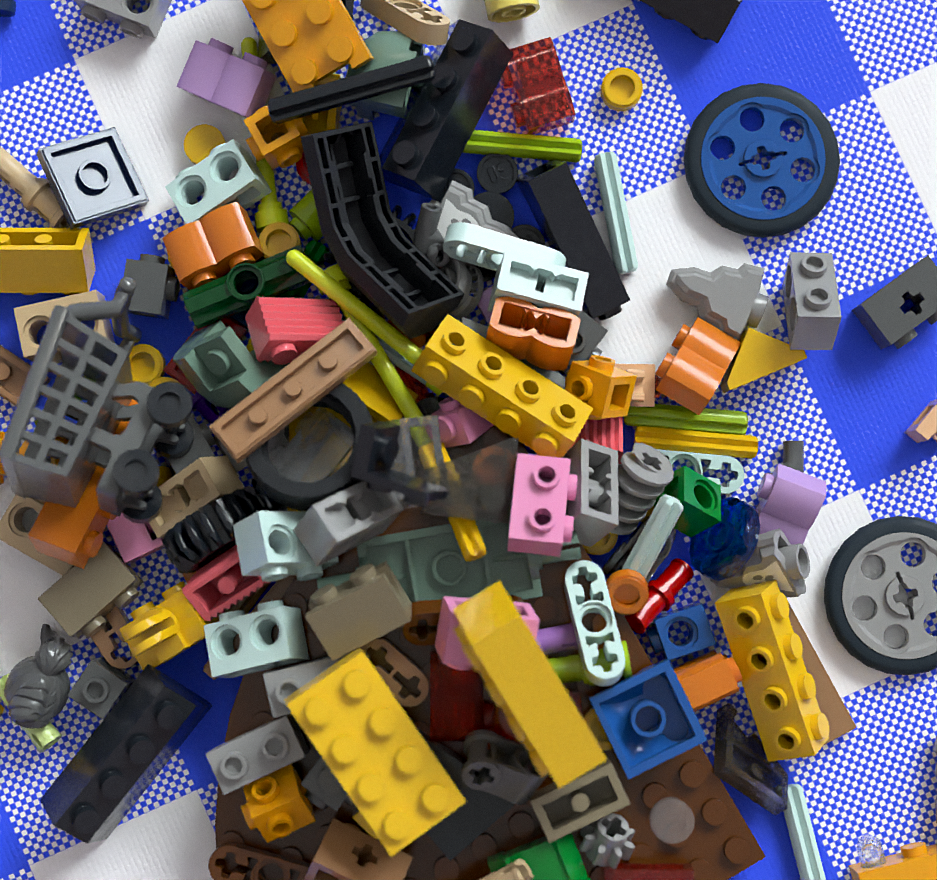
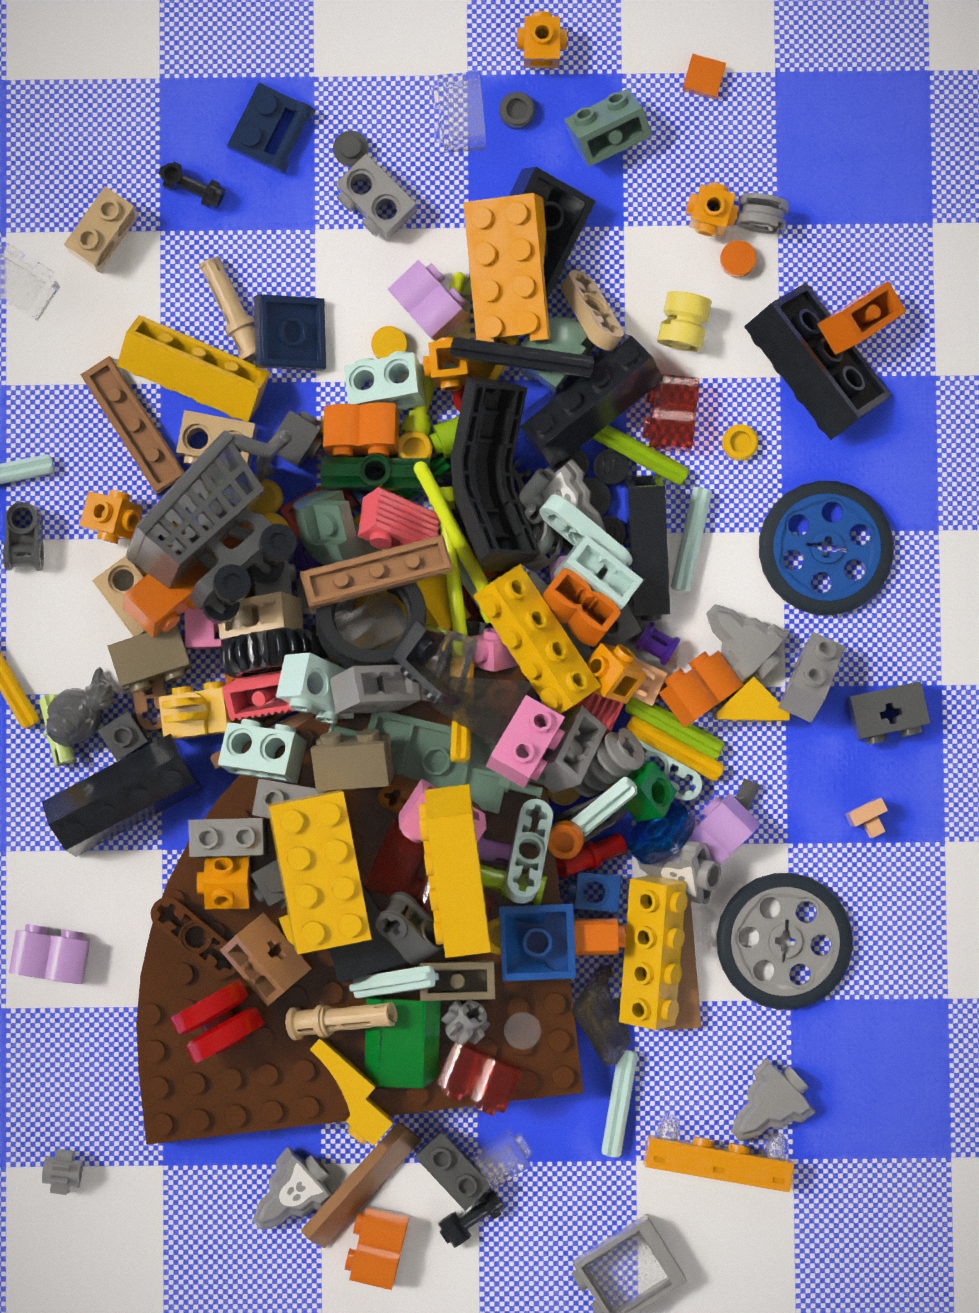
camera: 25 degrees right, 0 degrees up
(404, 666) = (368, 821): medium nougat beam -> none
(512, 833) = (394, 982): none -> light aqua axle
(629, 338) = (657, 643): none -> dark purple bush

